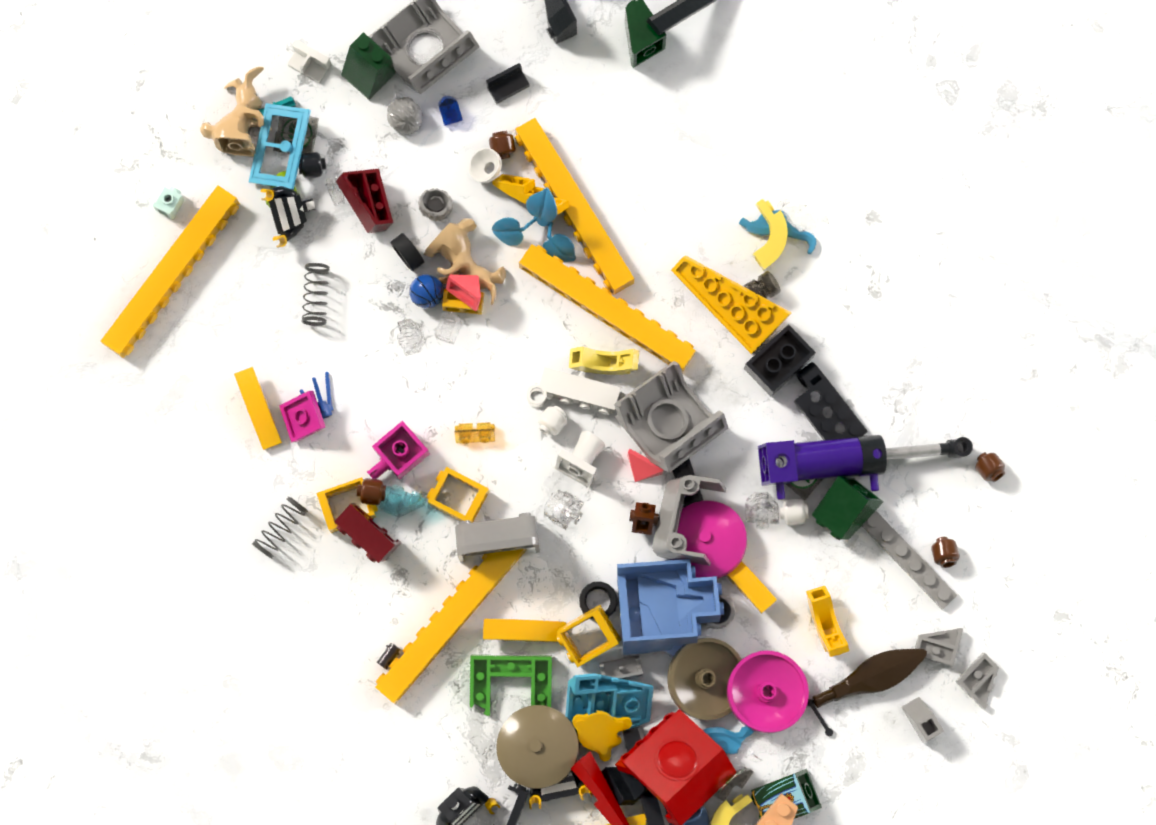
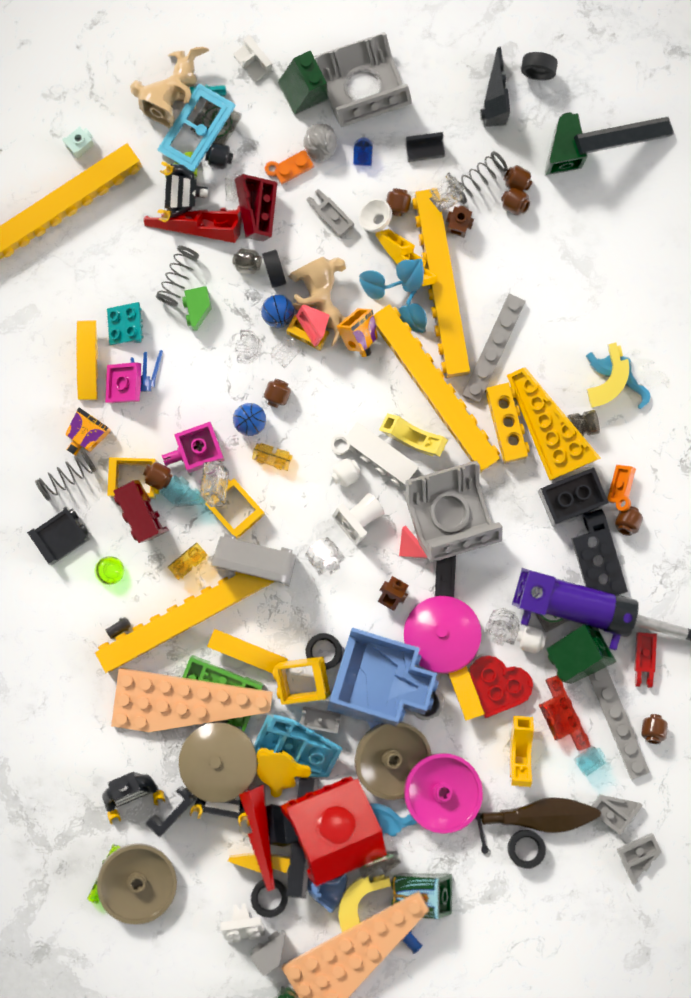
camera: 20 degrees right, 5 degrees up
(281, 359) = (125, 323): none -> teal hinge
(283, 478) = (85, 432): none -> torso
(296, 588) = (59, 535): none -> black panel
(333, 232) = (217, 225): none -> red wedge
(346, 314) = (198, 306): none -> bright green slope
(357, 603) = (109, 570): none -> clear neon green hair
(378, 255) = (247, 261): none -> clear smoke head
(385, 150) = (290, 167): none -> orange hinge
(429, 478) = (214, 483): none -> clear brick
(429, 568) = (187, 560): none -> clear yellow hinge
(435, 204) = (316, 234): light grey hair -> none
(439, 404) = (249, 419): none -> blue piece
(441, 179) = (331, 214): none -> light grey hinge
(456, 369) = (277, 393): none -> reddish brown head
(462, 709) = (167, 702): none -> light nougat wing
(512, 280) = (359, 331): none -> light orange torso
(546, 118) = (446, 193): none -> clear hair
(550, 110) = (464, 200): none -> dark grey piece
(568, 141) = (459, 221): none -> reddish brown brick
(608, 81) = (518, 178): none -> reddish brown head
(614, 102) = (515, 201): none -> reddish brown head
(648, 249) = (494, 348): none -> light grey plate
(667, 541) = (404, 621): light grey windscreen -> none
(701, 342) = (509, 452): none -> yellow brick
(780, 568) = (499, 685): none -> red plate
(822, 333) = (621, 486): none -> orange hinge
(842, 363) = (629, 521): none -> reddish brown head
(852, 573) = (562, 716): none -> clear red bracket
(869, 730) = (541, 849): none -> black tyre
(895, 606) = (590, 760): none -> clear light blue brick
(909, 487) = (645, 657): none -> red hinge
(922, 719) = (573, 872): light grey slope -> none

